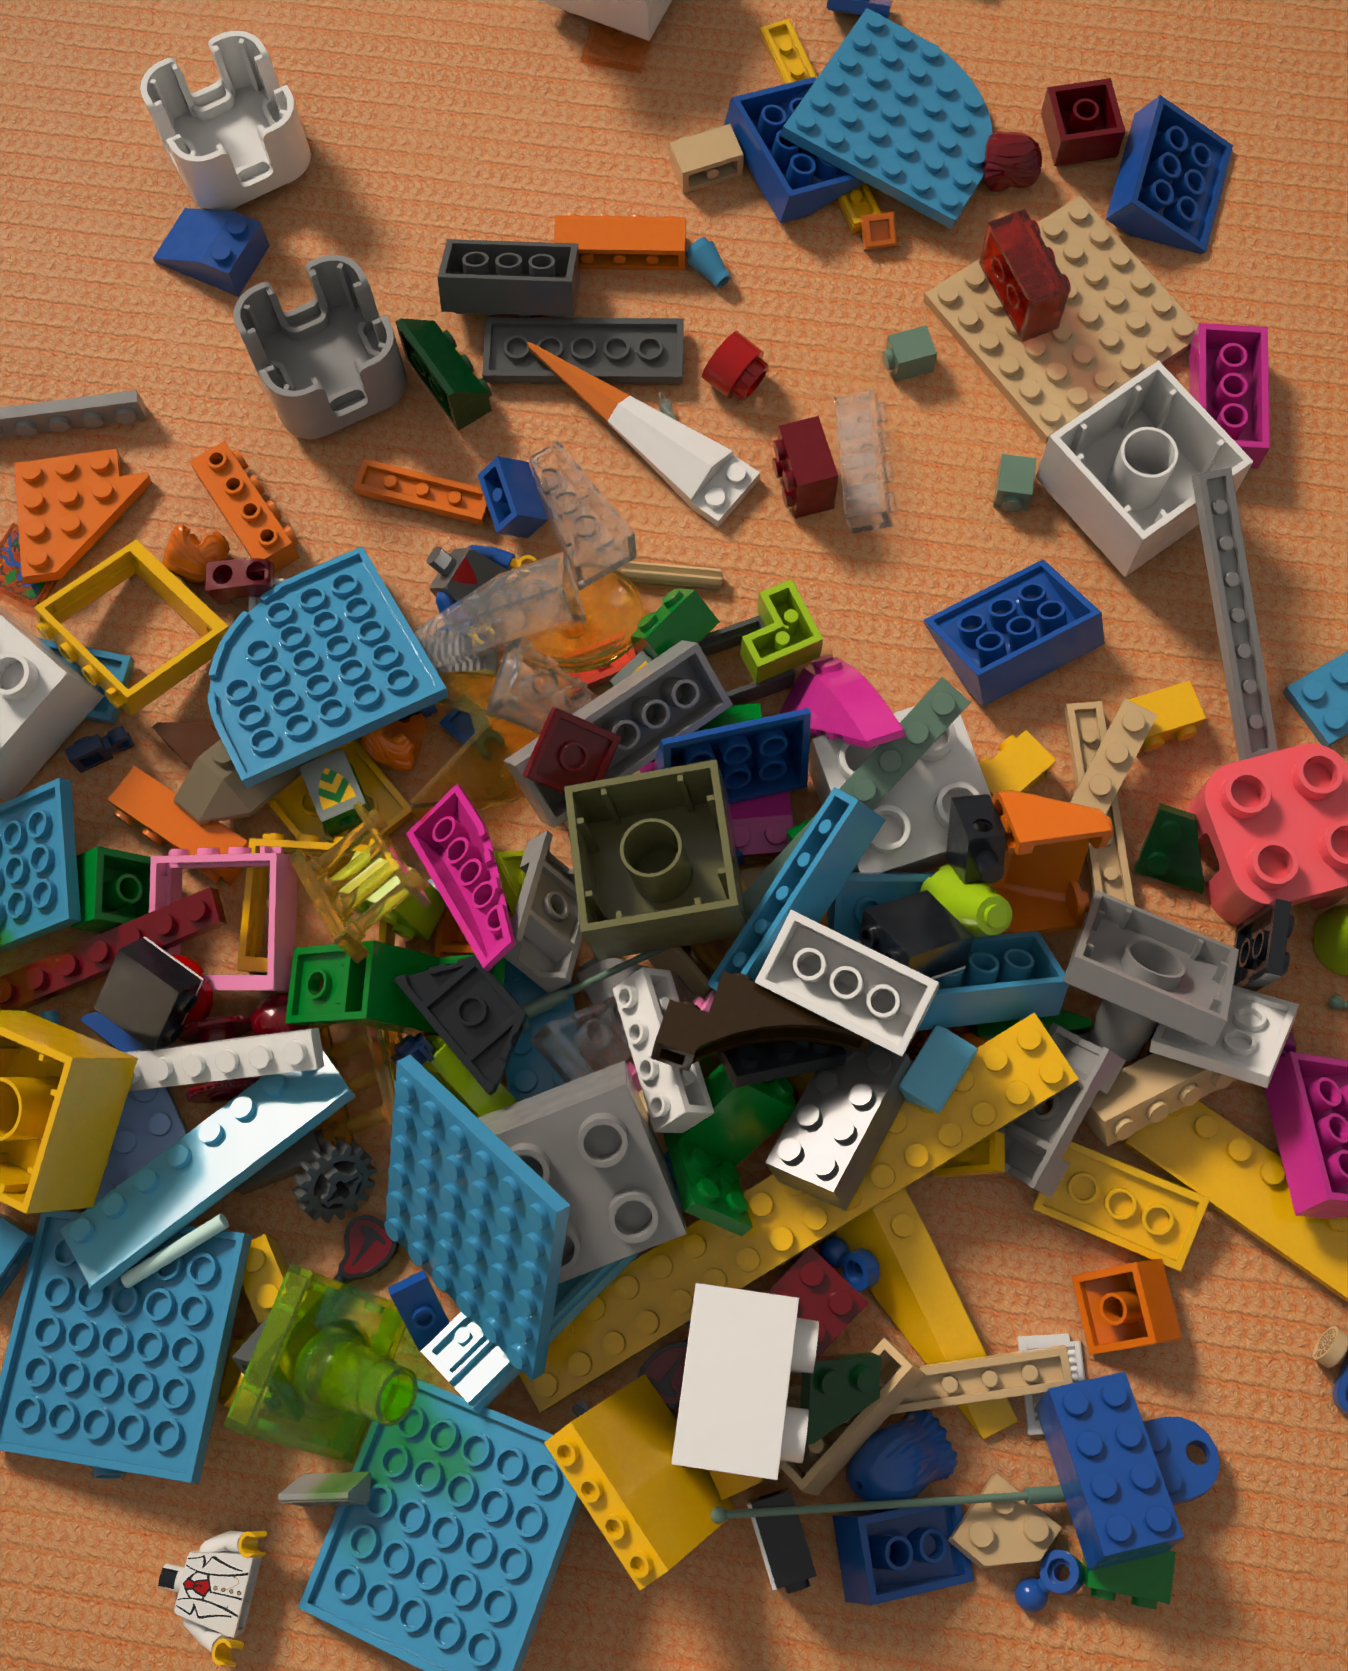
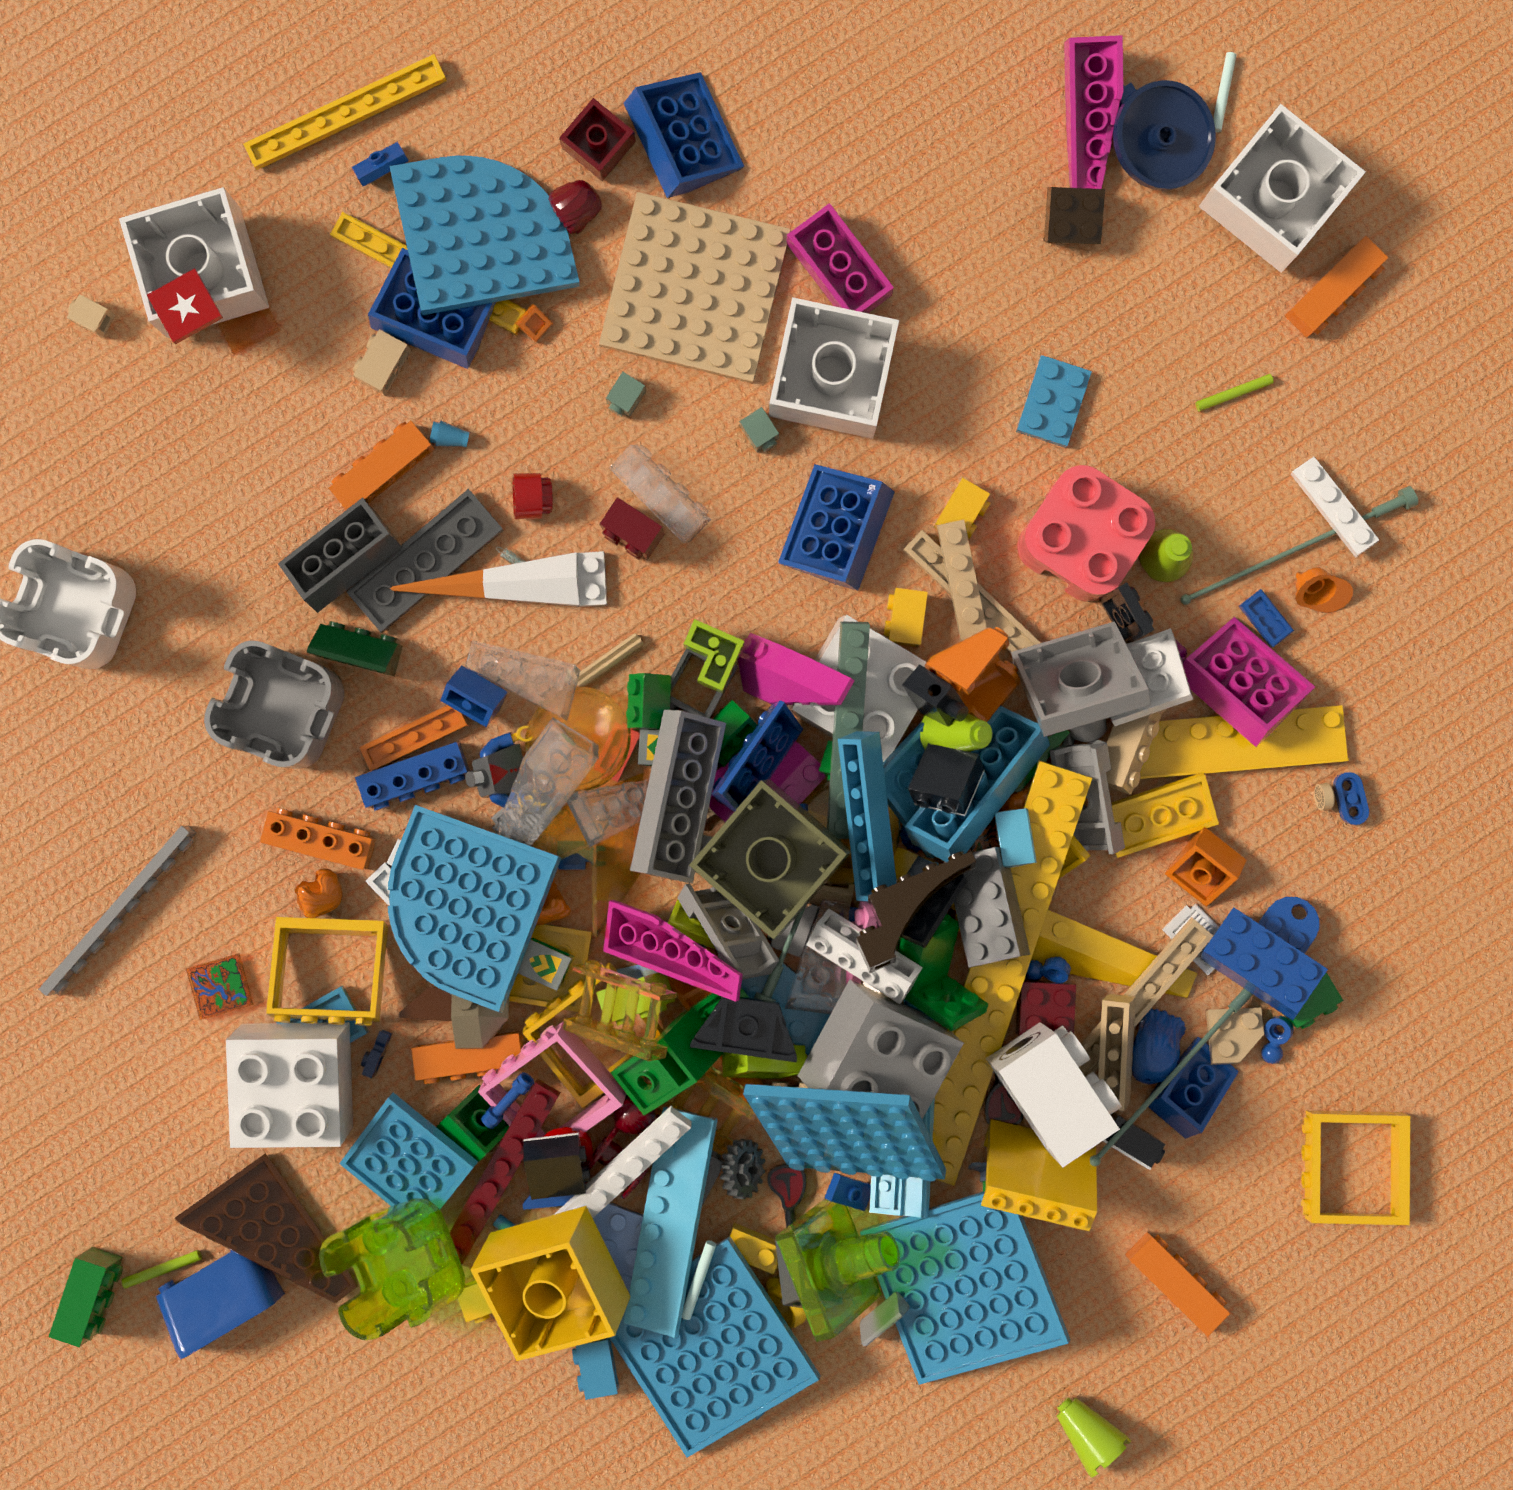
camera: 45 degrees left, 15 degrees up
(68, 507) = (210, 930): orange wing -> none
(143, 891) = (520, 1086): none -> blue bar
(214, 248) = (126, 689): blue slope -> none
(217, 1590) = (872, 1413): white torso -> none
(238, 579) = (363, 888): dark red leg -> none
(384, 522) = (413, 775): none -> blue brick
(416, 1046) = (730, 1072): dark blue plate -> none
(570, 752) = (671, 838): dark red tile -> none
(838, 1390) = (1105, 1049): dark green wing -> none
(847, 983) = (939, 844): white slope -> none
(1024, 275) = (657, 290): clear red brick -> none
(1172, 850) = (1032, 589): dark green wing -> none
(1234, 613) = (958, 420): light grey plate -> none

